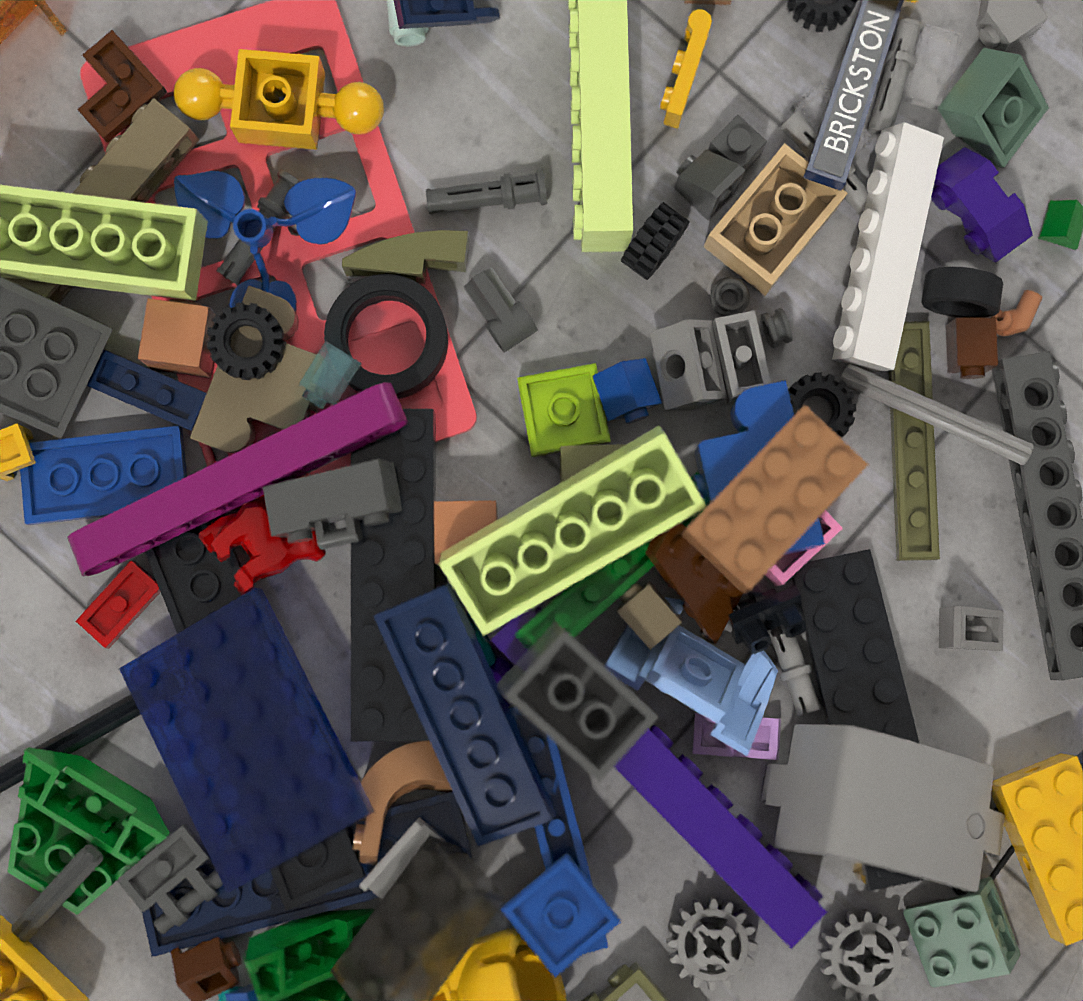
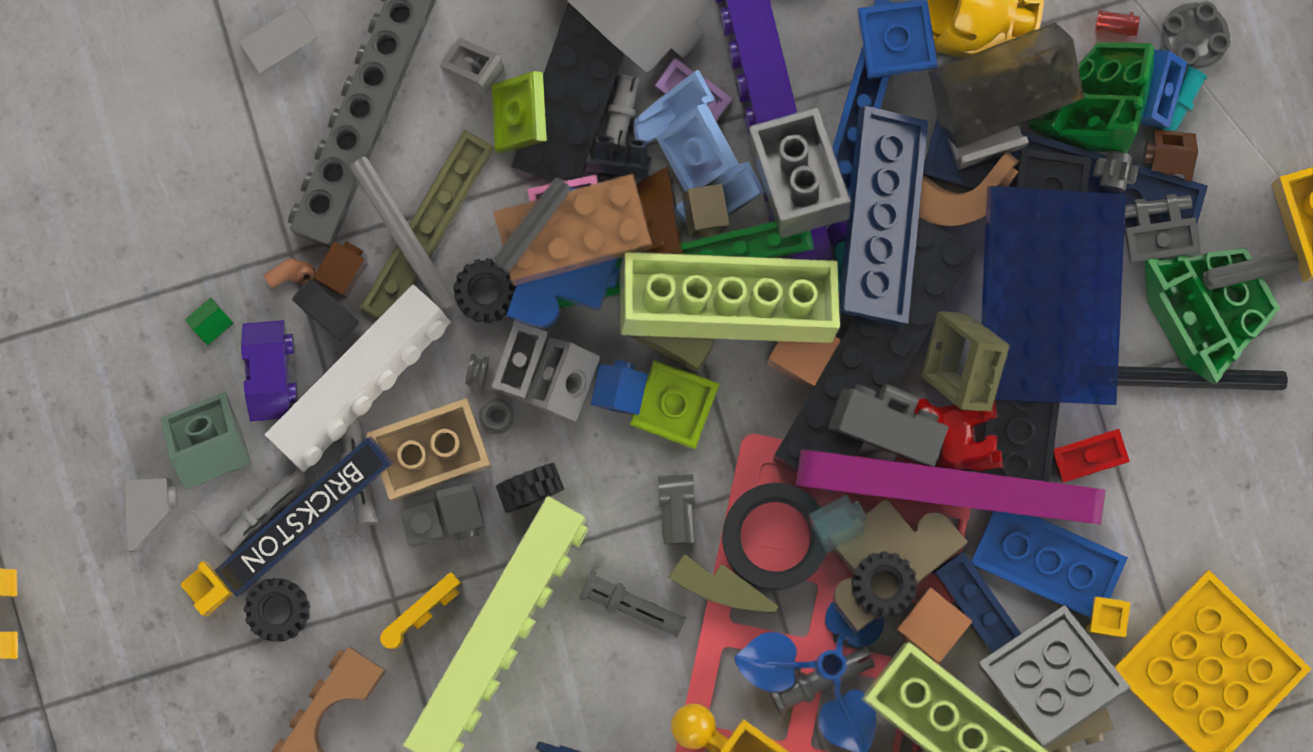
camera: 145 degrees left, 0 degrees up
(252, 912) = (1116, 171): none -> dark grey gear
(265, 600) = (982, 367): none -> olive window
(821, 470) = (532, 224): none -> dark grey axle
(898, 605) = (518, 112): none -> lime plate

